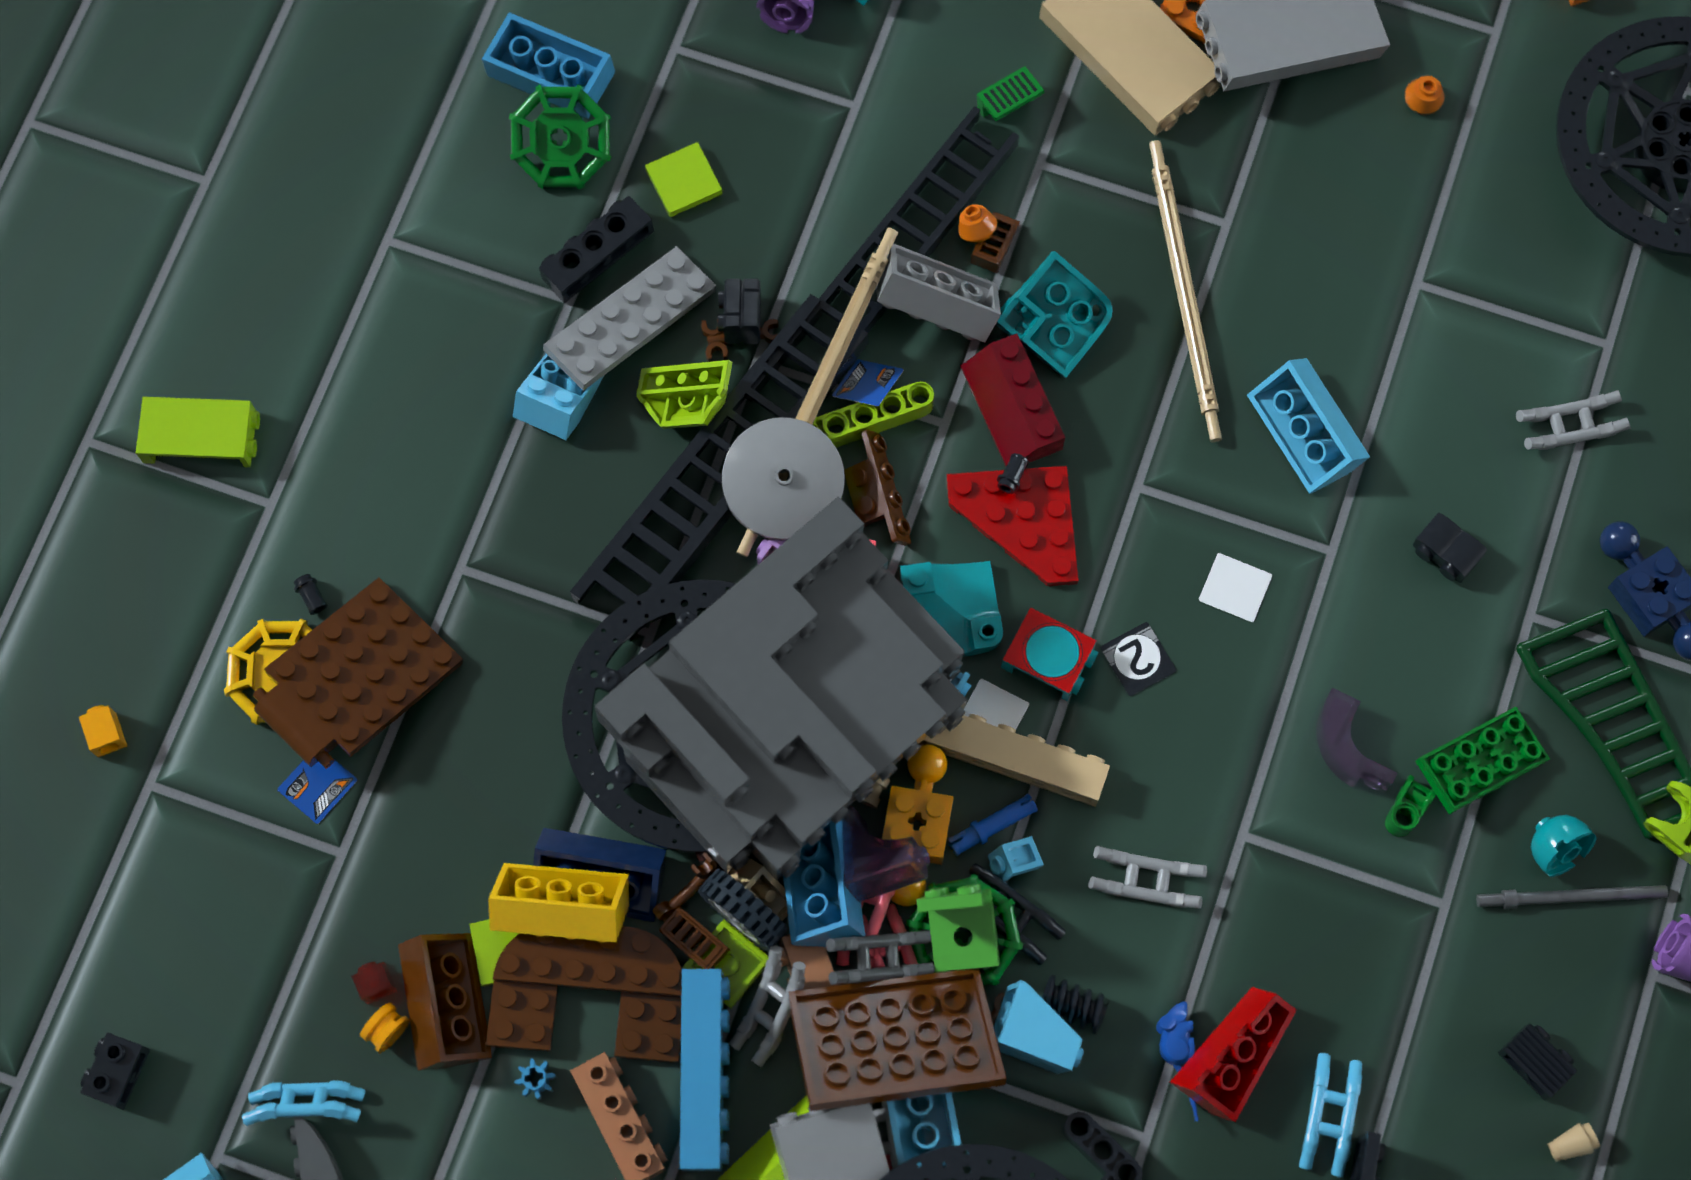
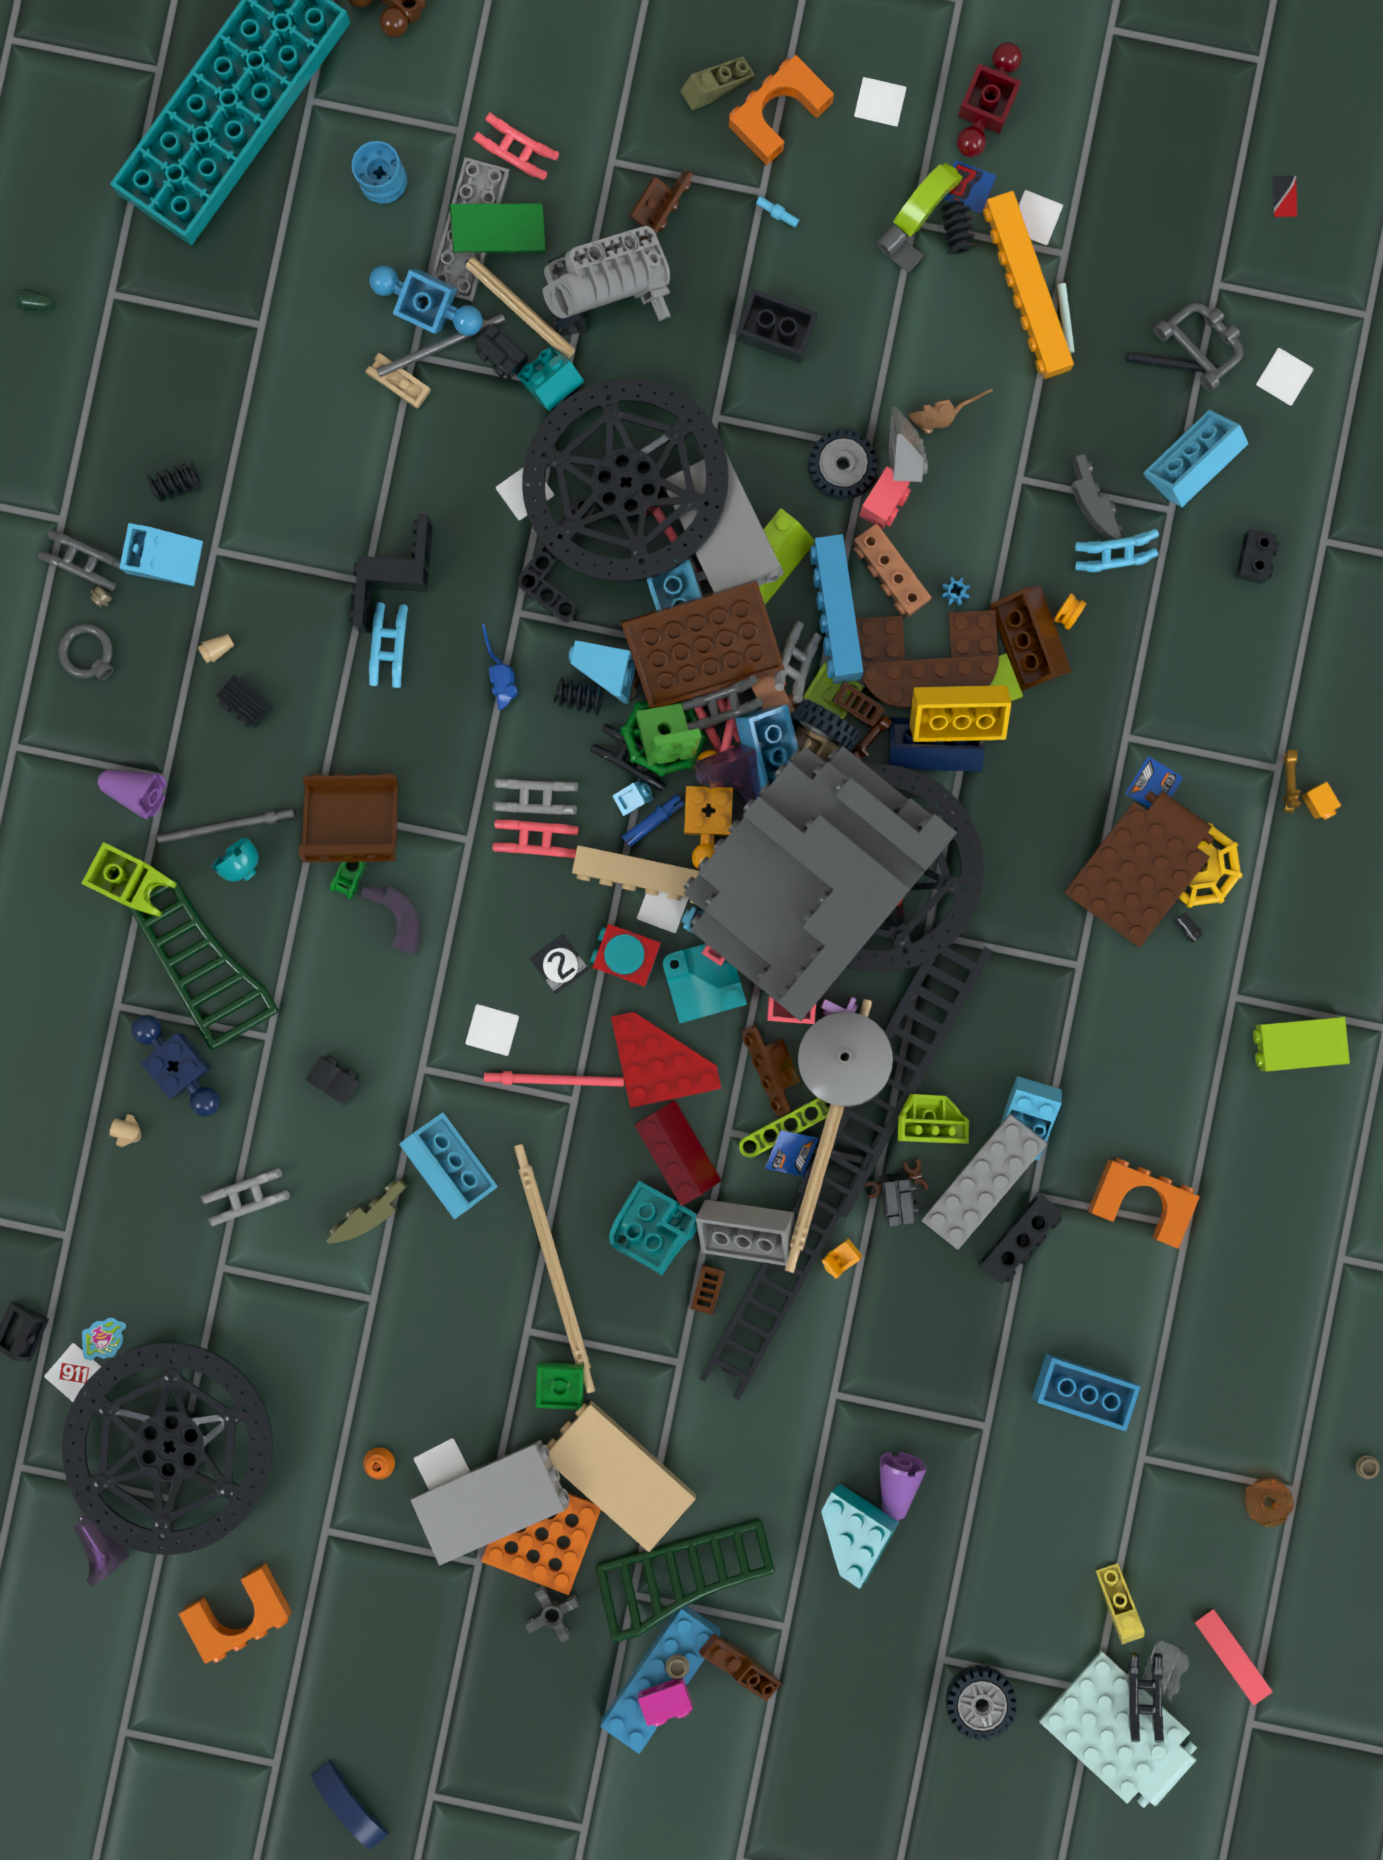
camera: 175 degrees right, 15 degrees up
(139, 739) = (1291, 799): none -> pearl gold bar
(373, 982) = (1084, 644): clear red brick -> none
(458, 301) = (1176, 1202): none -> orange arch
(548, 124) = (1057, 1337): green plate -> none
(683, 179) = (961, 1309): lime tile -> none
(824, 253) = (841, 1258): none -> light orange bracket
(976, 224) = (723, 1297): orange cone -> none
(1008, 94) = (711, 1414): green panel -> none
(1009, 480) = (670, 1091): black pin -> none
(1136, 829) = (525, 827): none -> coral piece
(1193, 152) = (559, 1385): none -> green tile
(1220, 522) = (508, 1078): none -> coral bar
(1235, 1054) = (459, 674): red wedge -> none
(1346, 86) = (441, 1464): none -> white sticker
(1403, 878) = (350, 818): none -> reddish brown panel
(1418, 373) = (361, 1220): none -> olive slope
(1482, 760) = (297, 916): green tile -> none

